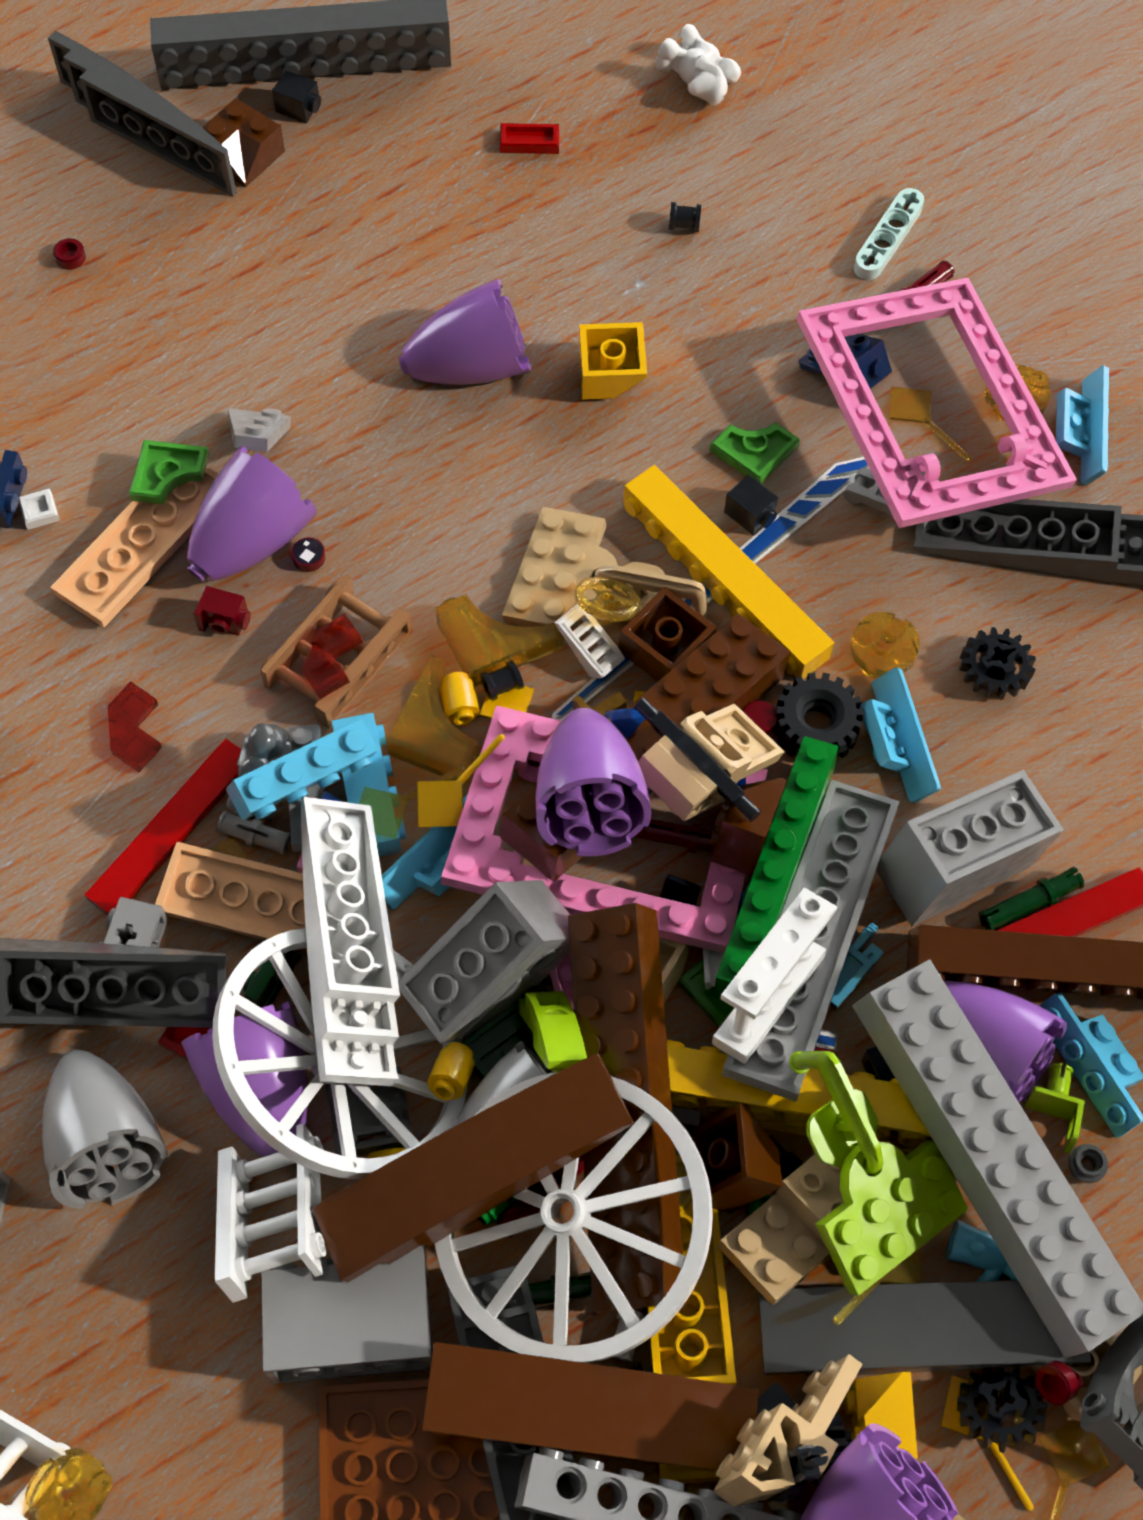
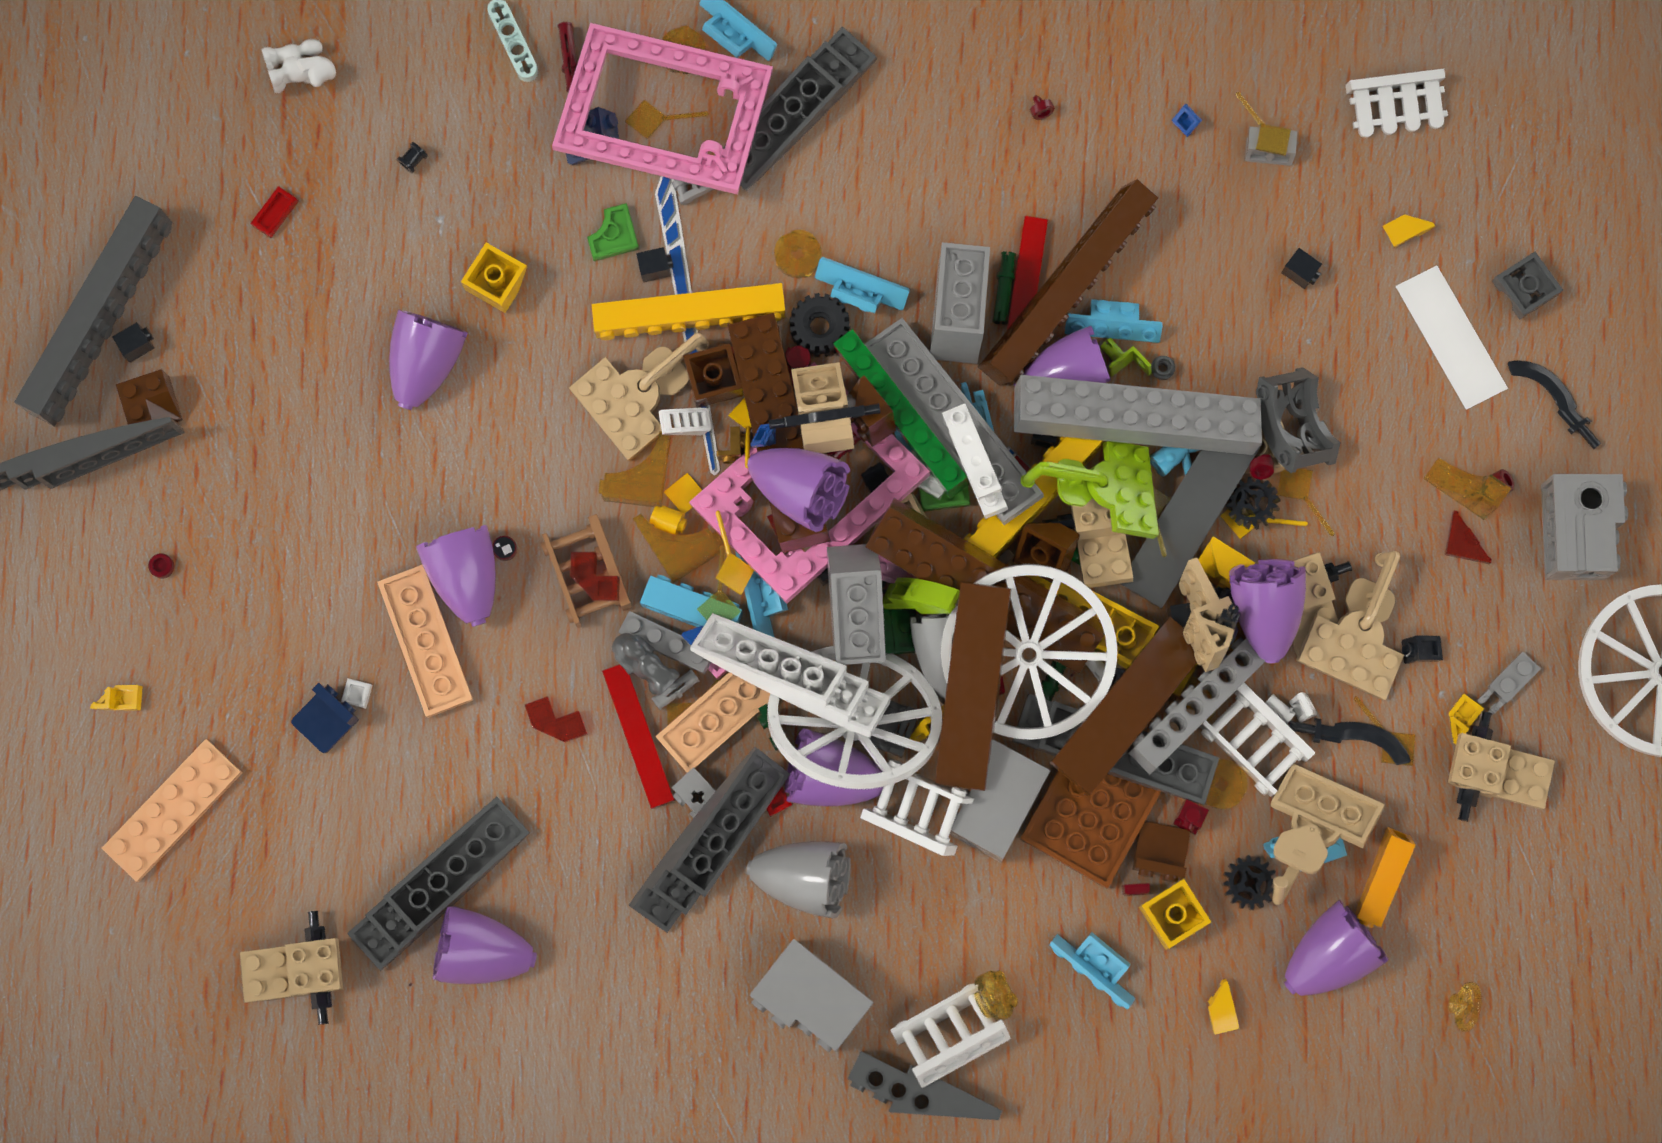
camera: 50 degrees left, 15 degrees up
(165, 467) = (386, 598): bright green tile -> none
(222, 611) = (514, 622): dark red brick -> none
(257, 429) = (397, 526): light grey wing -> none
(302, 769) = (671, 638): medium azure brick -> none
(451, 1071) = (900, 666): yellow brick -> none
(501, 680) = (673, 488): black bush -> none
(607, 604) = (670, 396): clear yellow piece -> none
(997, 663) = (862, 202): black gear -> none

